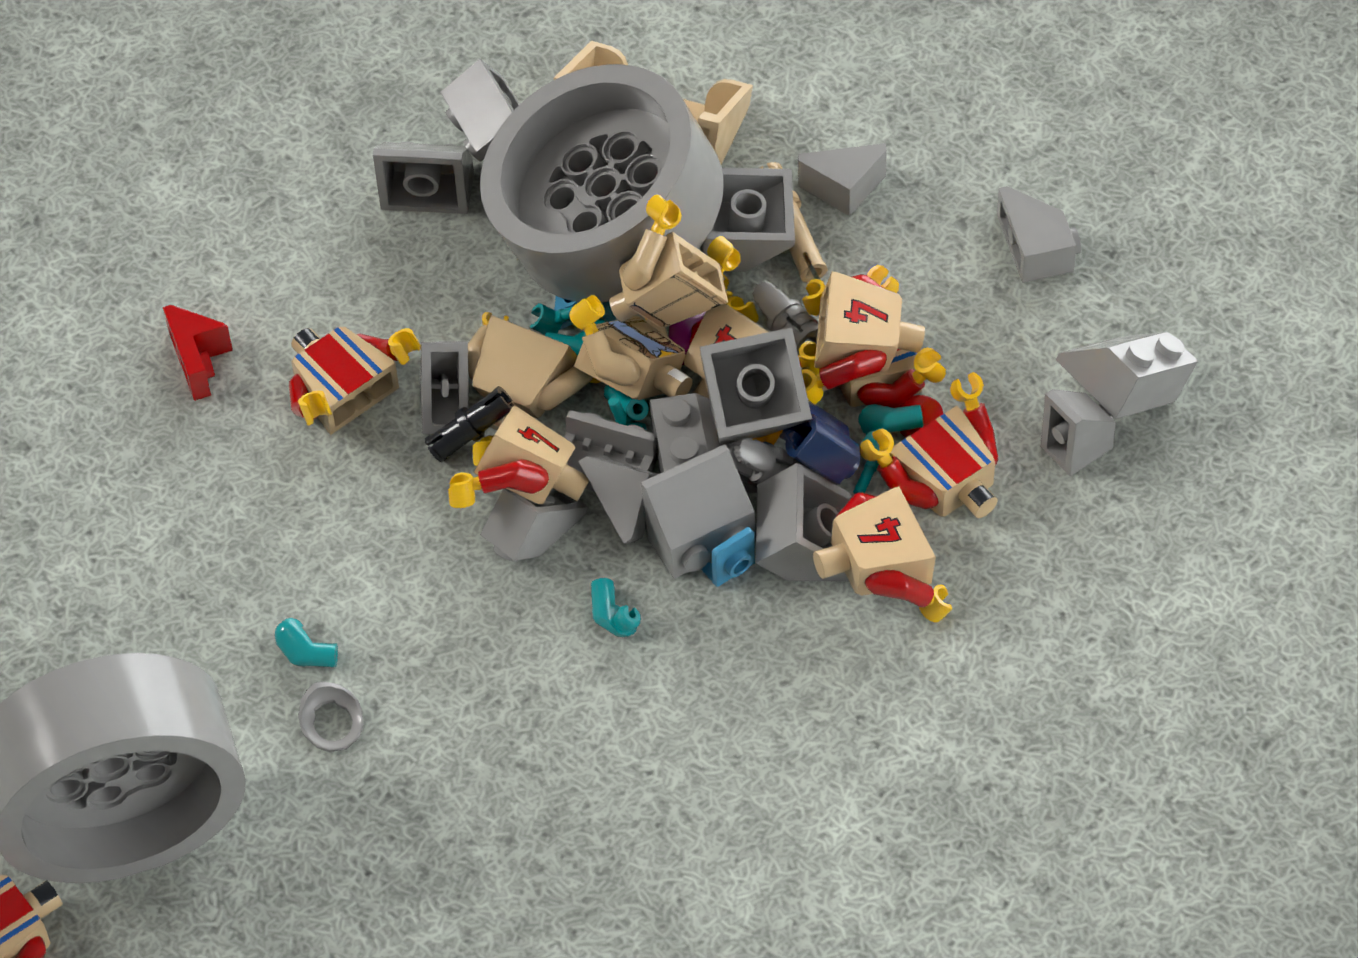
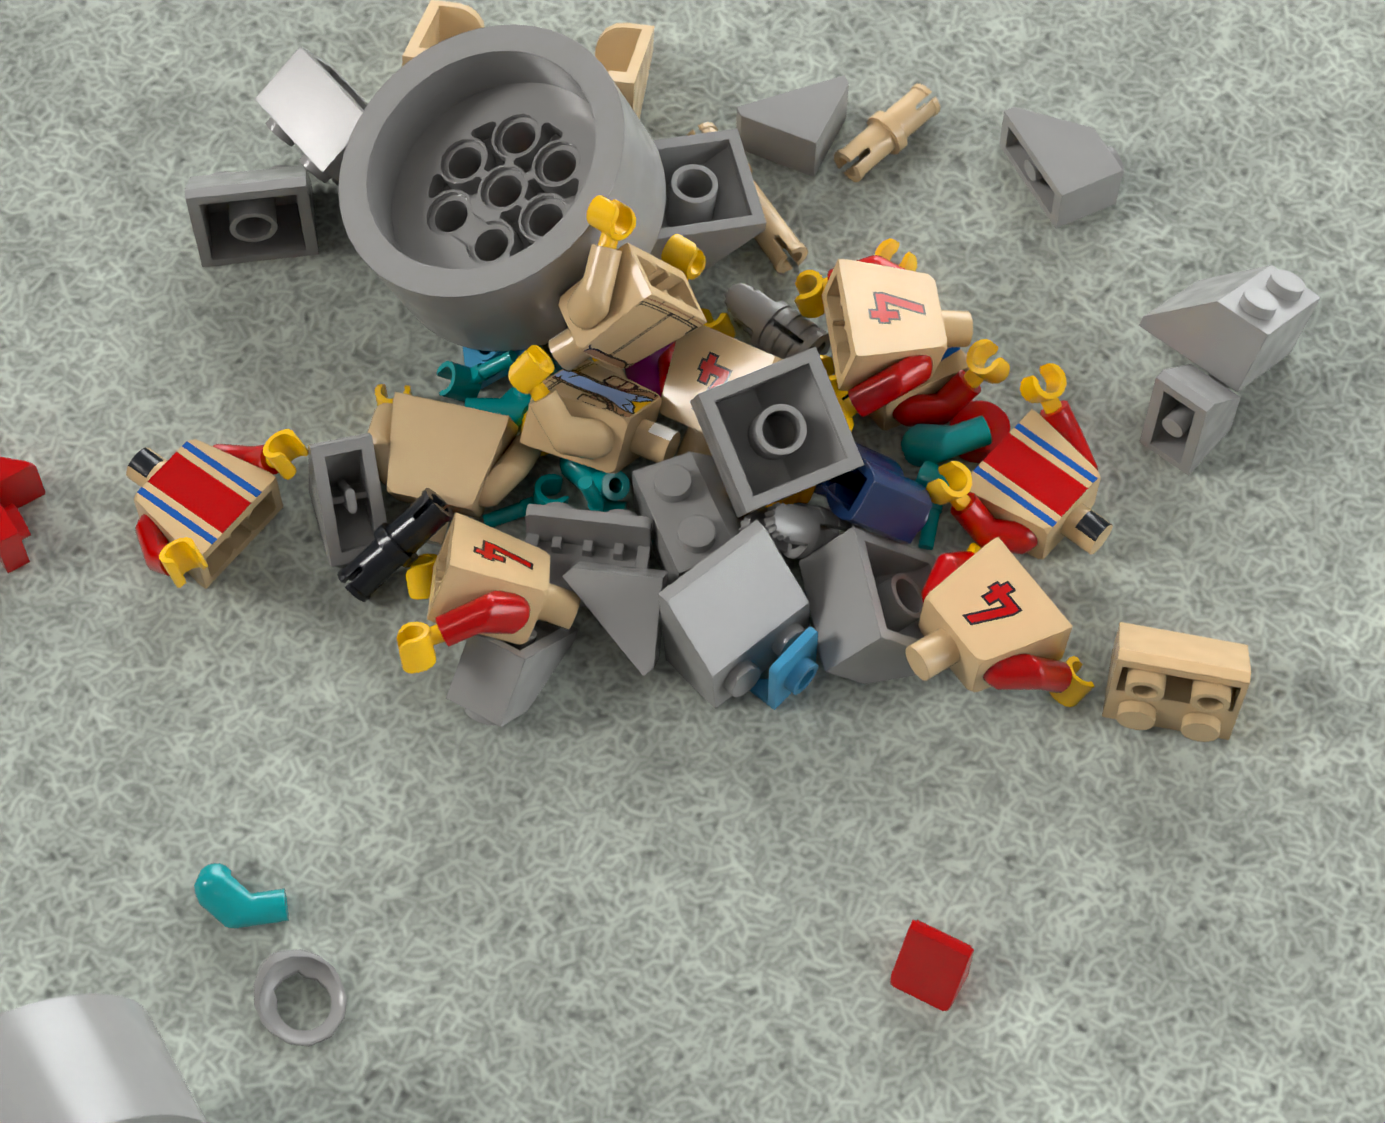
camera: 15 degrees left, 5 degrees up
(588, 404) = (545, 486): none -> teal hand
(608, 614) = (646, 779): teal arm -> none
(779, 775) = (931, 965): none -> red slope
(911, 191) = (887, 132): none -> tan pin
(1009, 614) = (1176, 682): none -> tan slope

